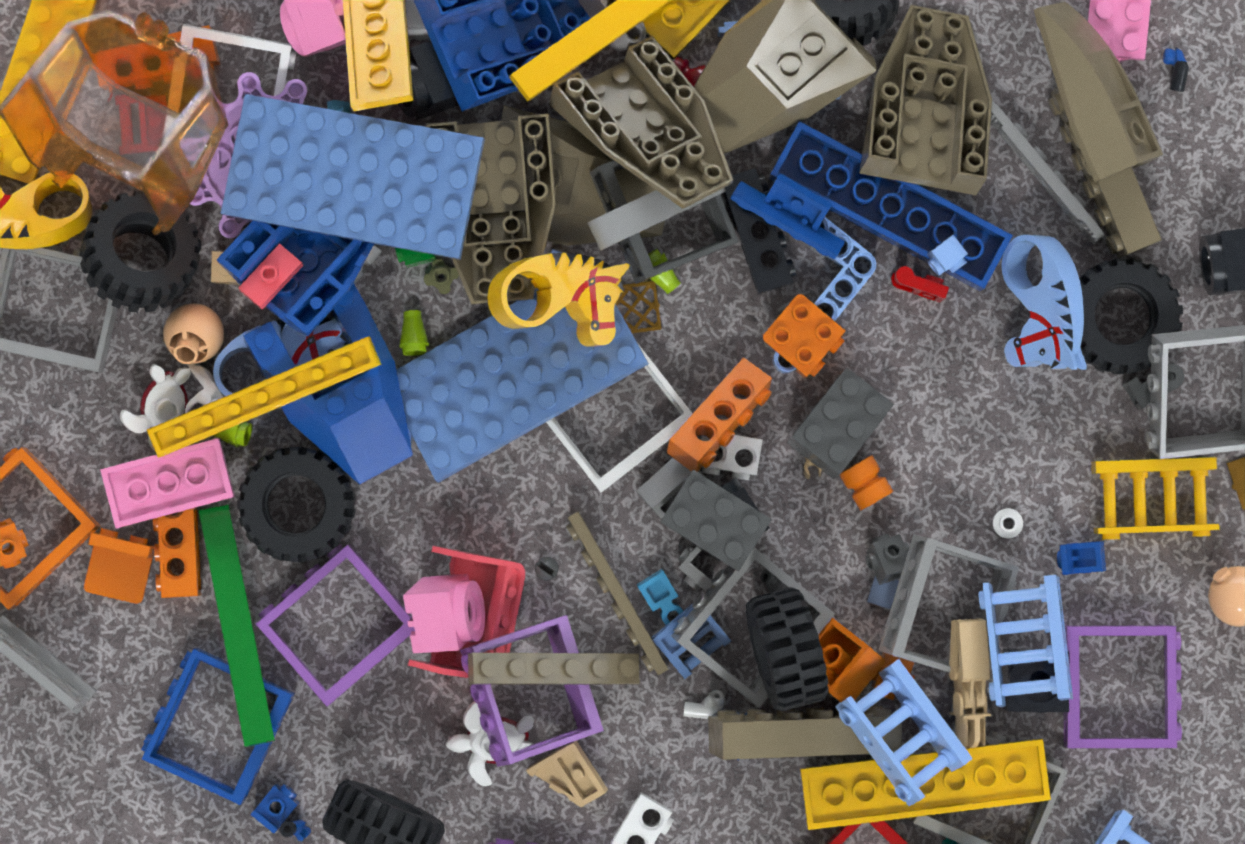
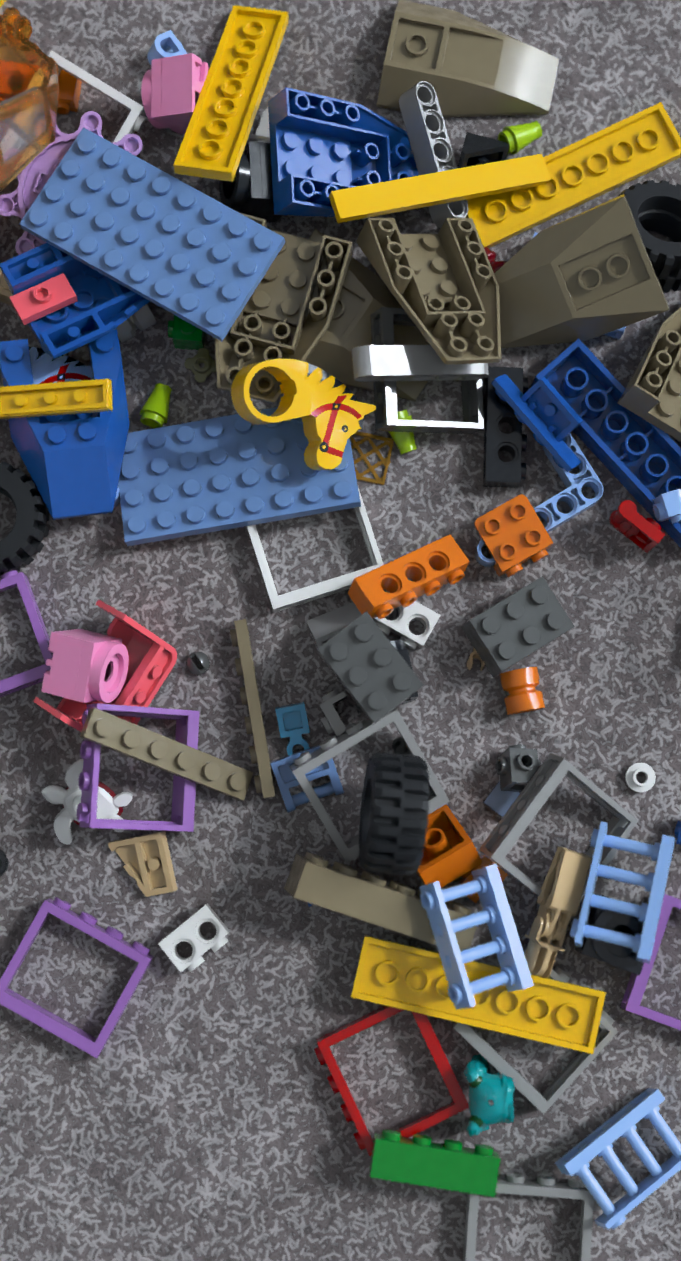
camera: 15 degrees right, 5 degrees down
(708, 707) = (308, 842): white arm -> none

